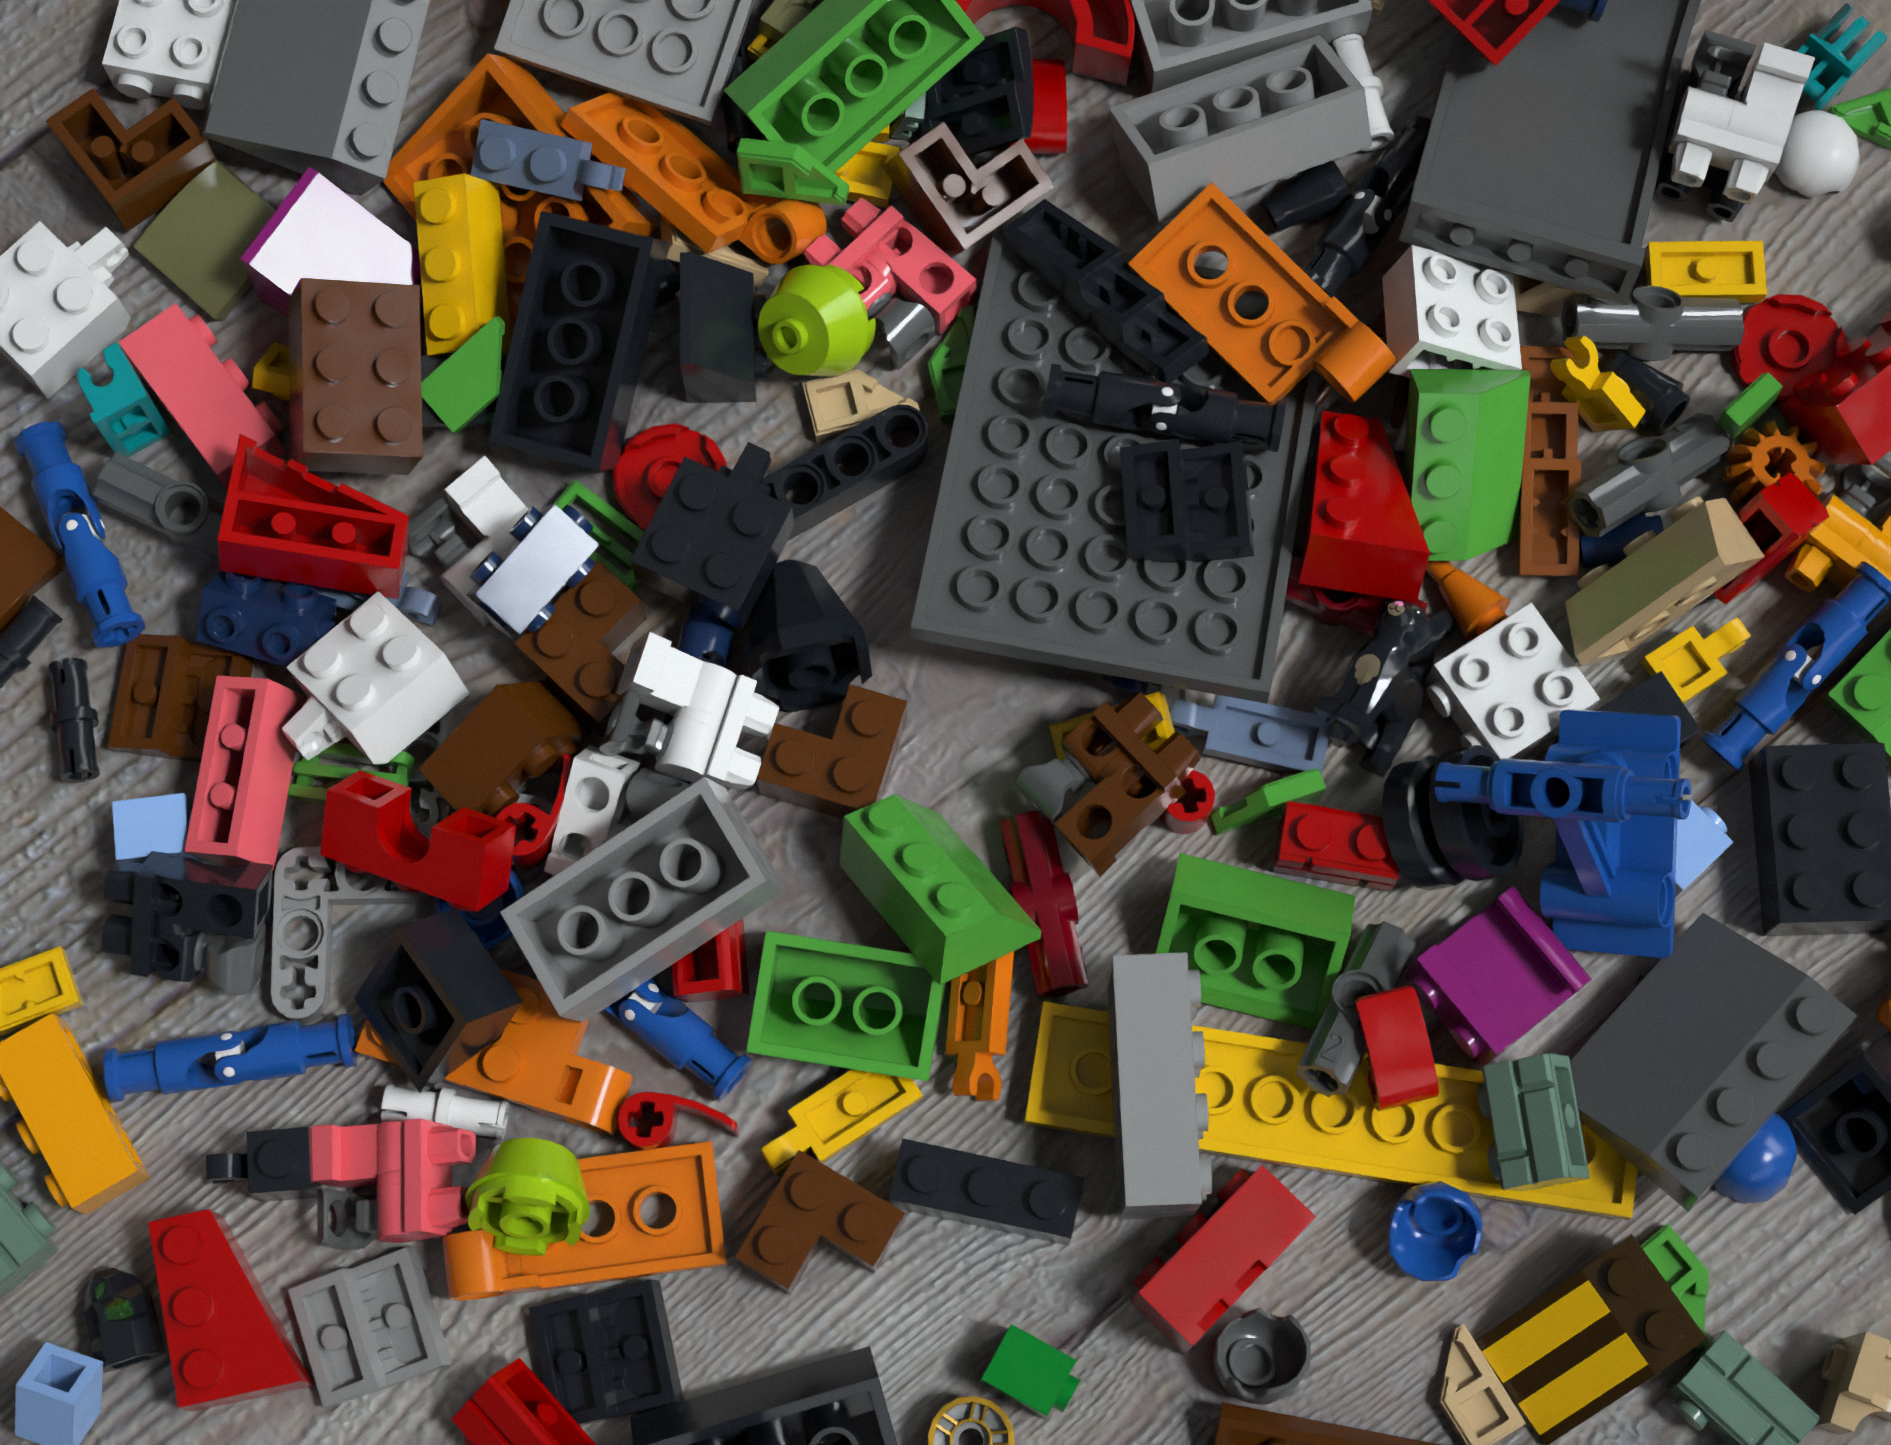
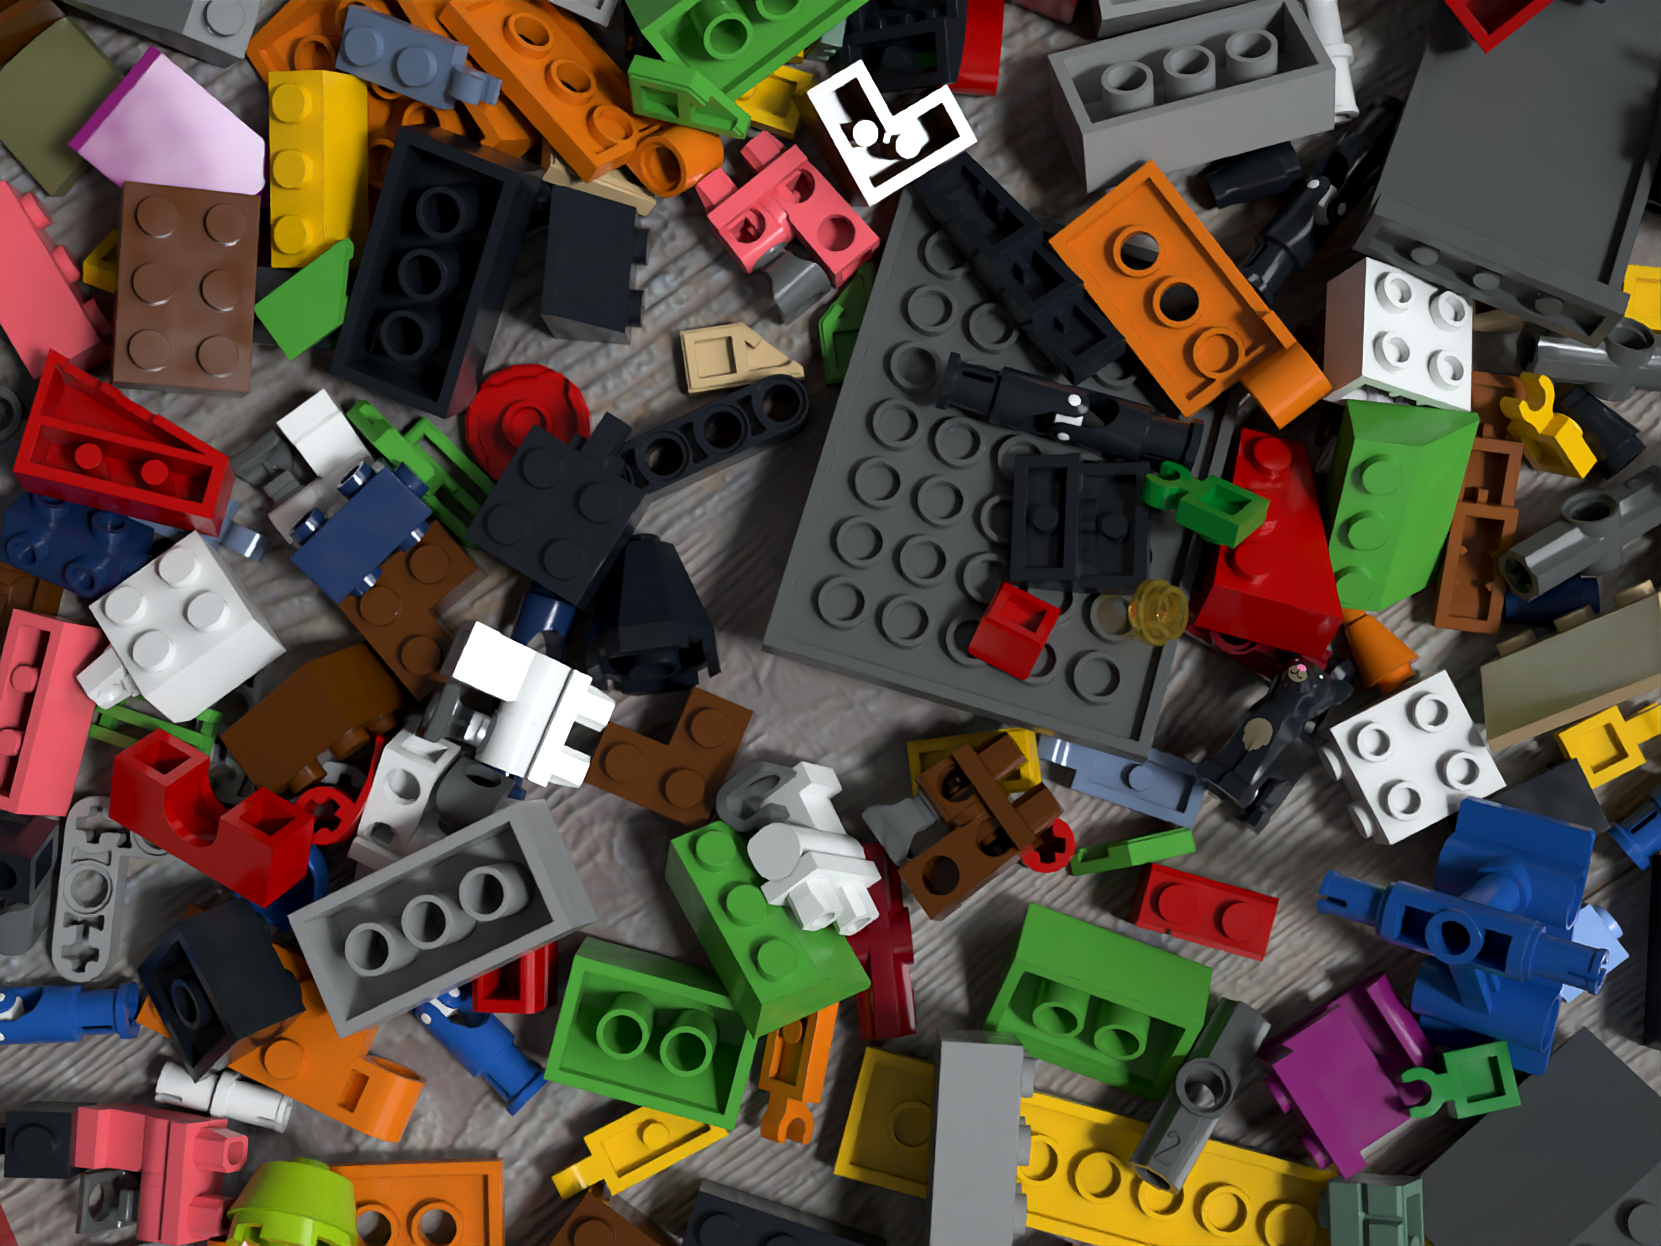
camera: 10 degrees right, 10 degrees up
(544, 492) = (393, 443): none -> bright green tile
(665, 1108) = (456, 1119): red panel -> none
(816, 322) = (698, 271): lime cone -> none
(962, 810) = (801, 844): none -> white hips
(1135, 595) = (1013, 631): none -> red slope
(1264, 565) = (1158, 612): none -> clear yellow plate
(1302, 468) = (1211, 507): none -> green plate
(1398, 1048) = (1239, 1151): red panel -> none
(1448, 841) = (1287, 896): black wheel -> none
(1600, 965) = (1469, 1079): none -> green plate

